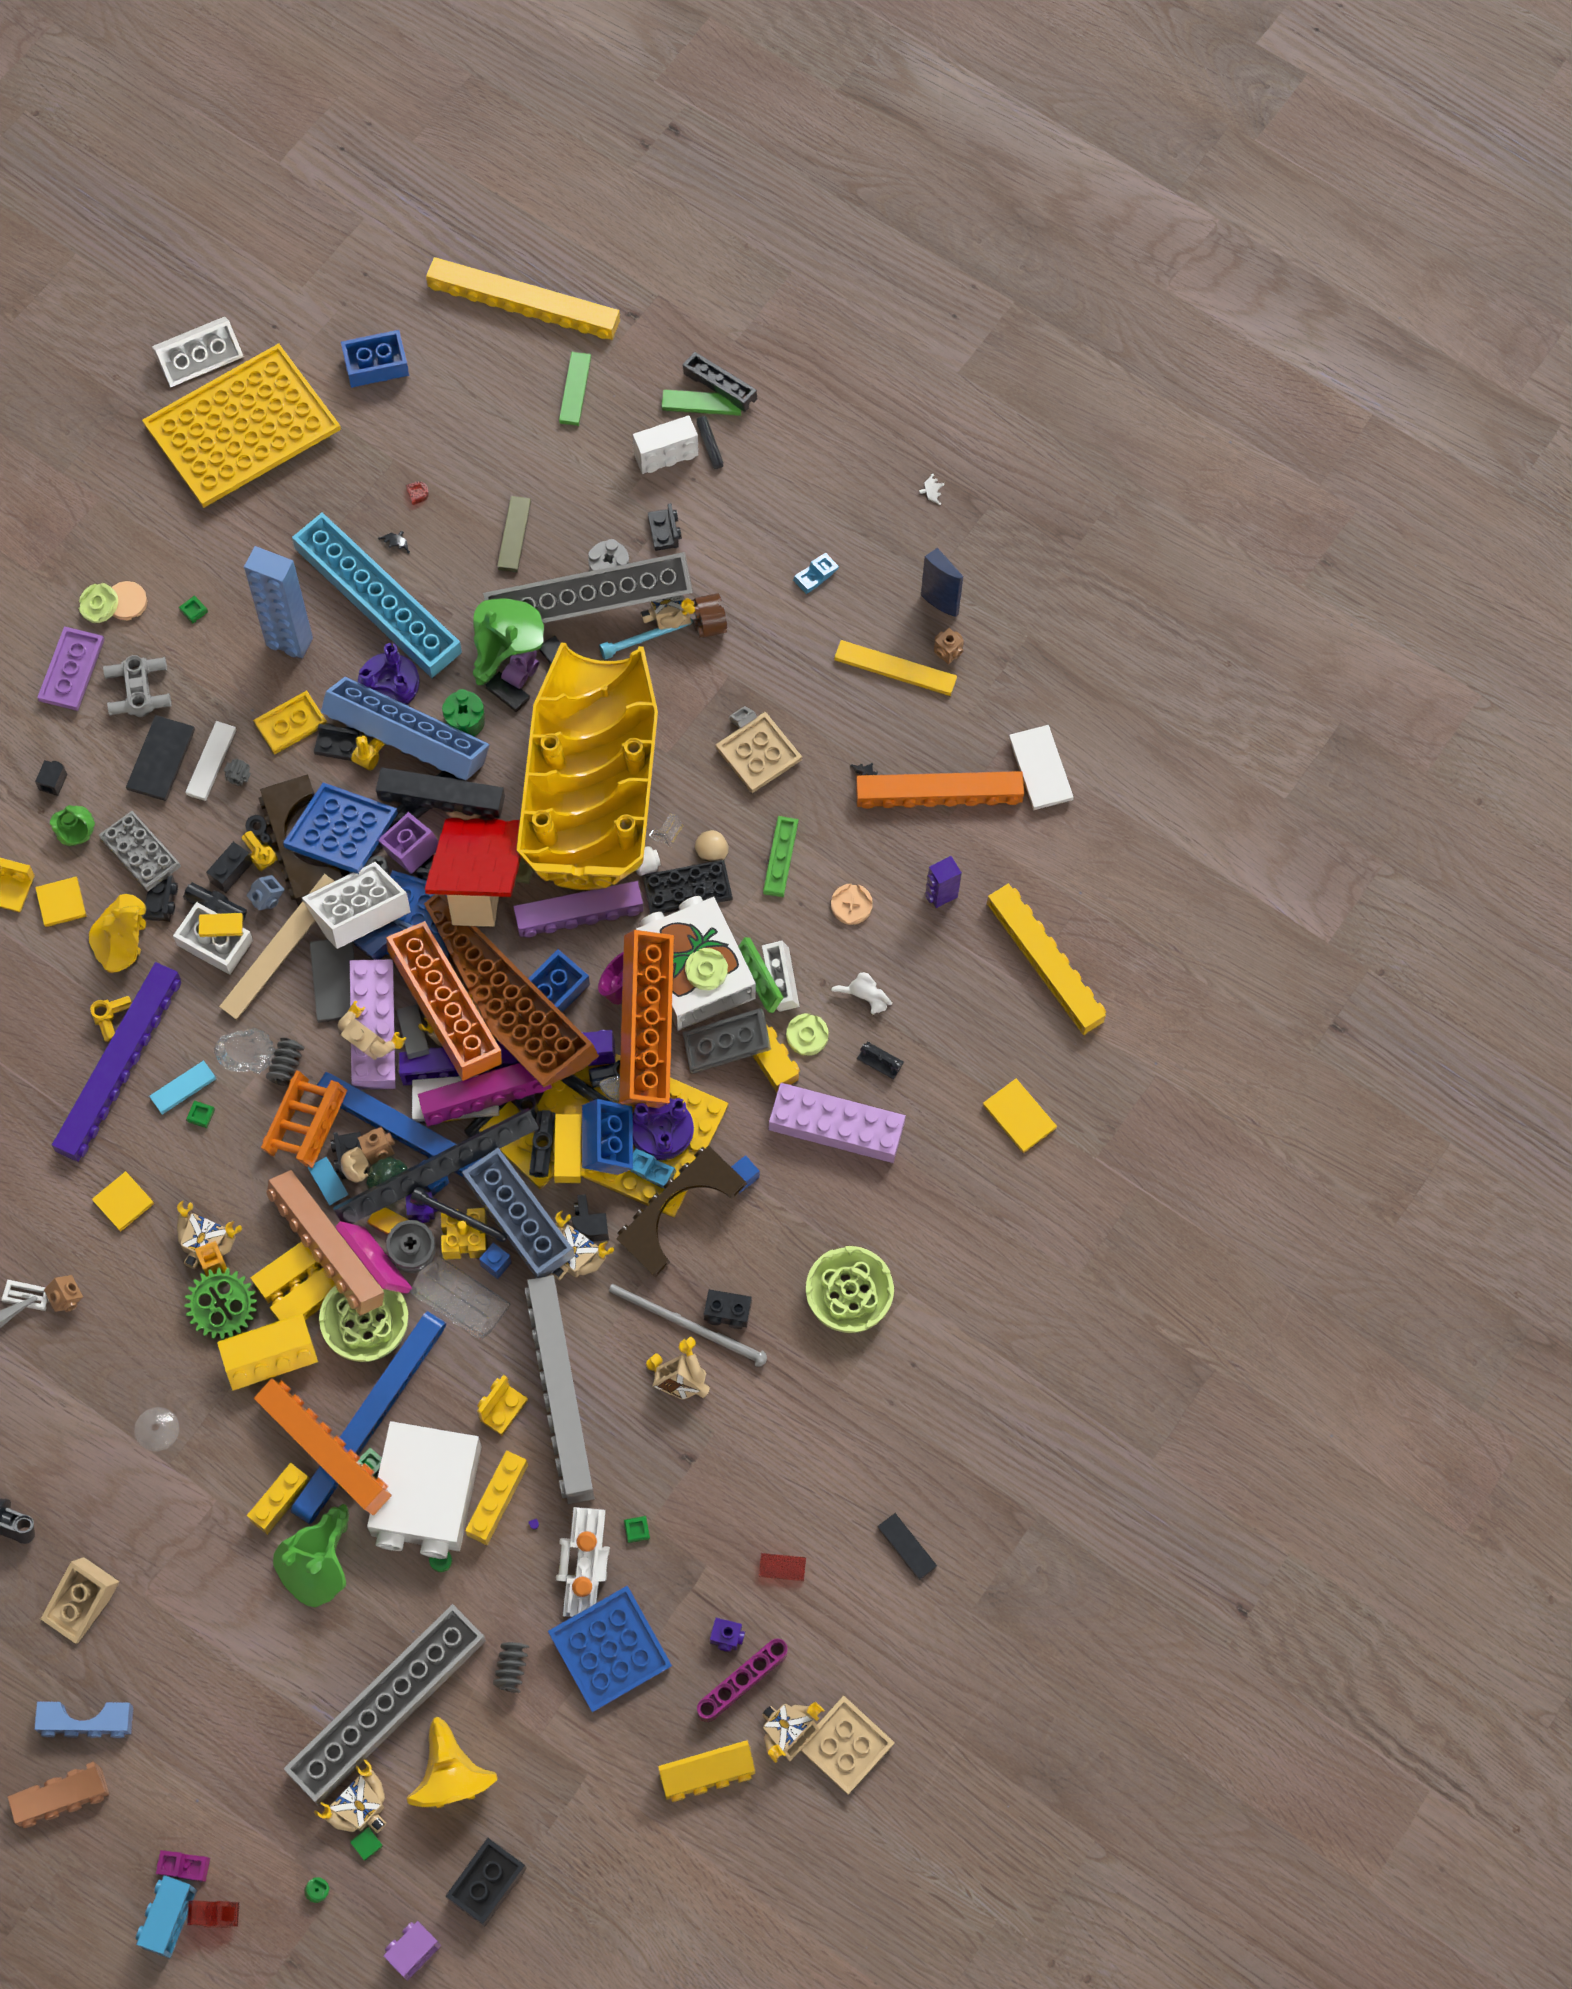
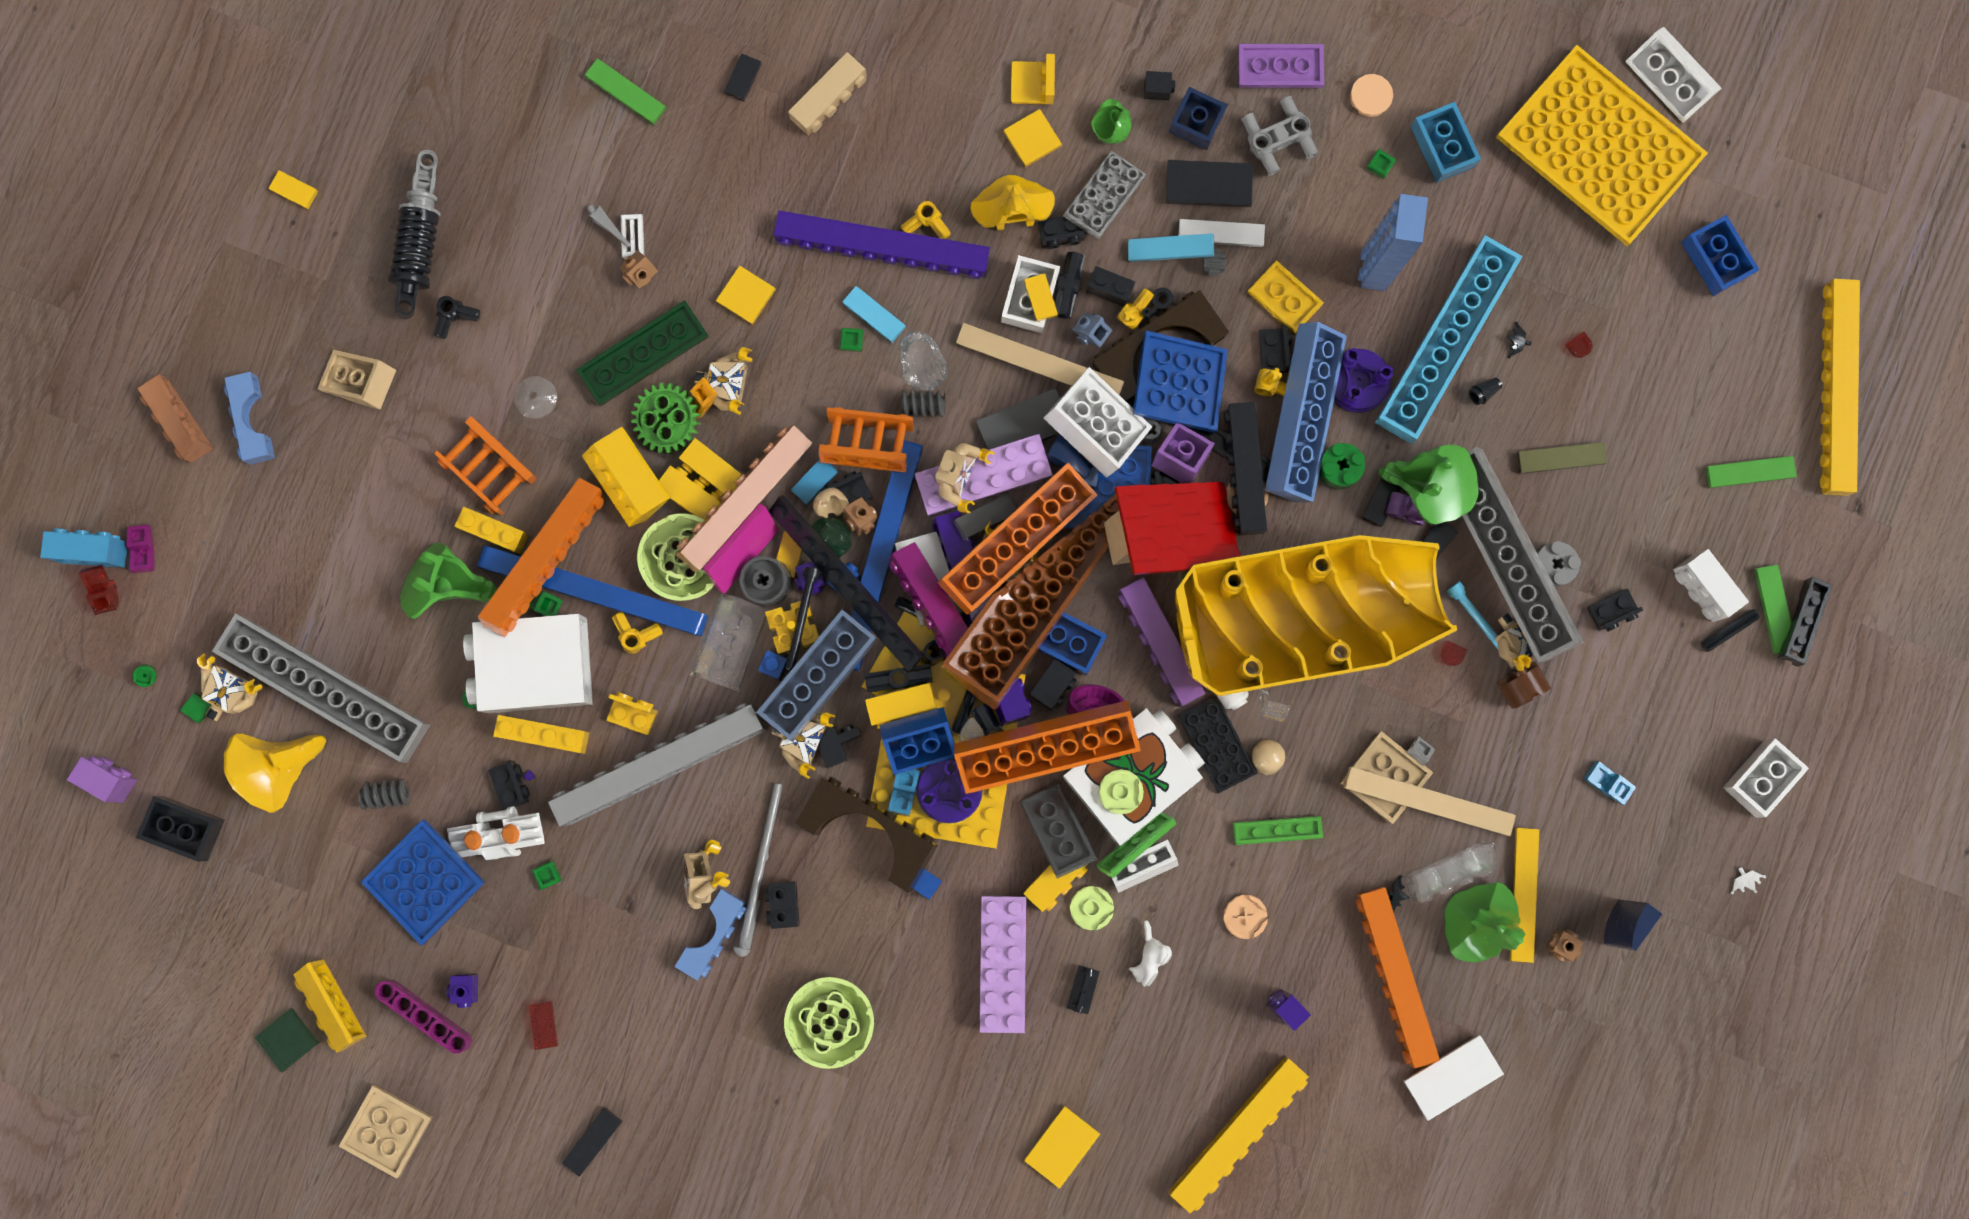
camera: 75 degrees right, 15 degrees up
(47, 1494) = (458, 311): none -> black axle
(96, 749) = (1198, 118): none -> dark blue brick
(98, 603) = (1359, 68): yellowish green tile -> none
(148, 1312) = (642, 353): none -> dark green plate
(194, 549) = (1445, 142): none -> dark azure brick
(211, 804) = (1171, 247): none -> medium azure tile
(211, 1468) = (490, 446): none -> orange fence
(429, 1381) = (627, 632): none -> yellow axle
(433, 580) = (1484, 391): none -> black cone
(537, 1543) = (509, 785): none -> black bracket
(589, 1012) = (1053, 684): none -> black brick
(663, 669) = (1452, 654): none -> clear red tile
(719, 1363) = (696, 960): none -> medium blue arch
(730, 1826) = (287, 1040): none -> clear green tile
(789, 721) = (1429, 801): none -> tan tile
(789, 1729) = (381, 1074): torso -> none
(846, 448) = (1765, 778): none -> white brick
(857, 719) = (1451, 870): none -> clear slope
(910, 705) = (1482, 922): none -> bright green animal

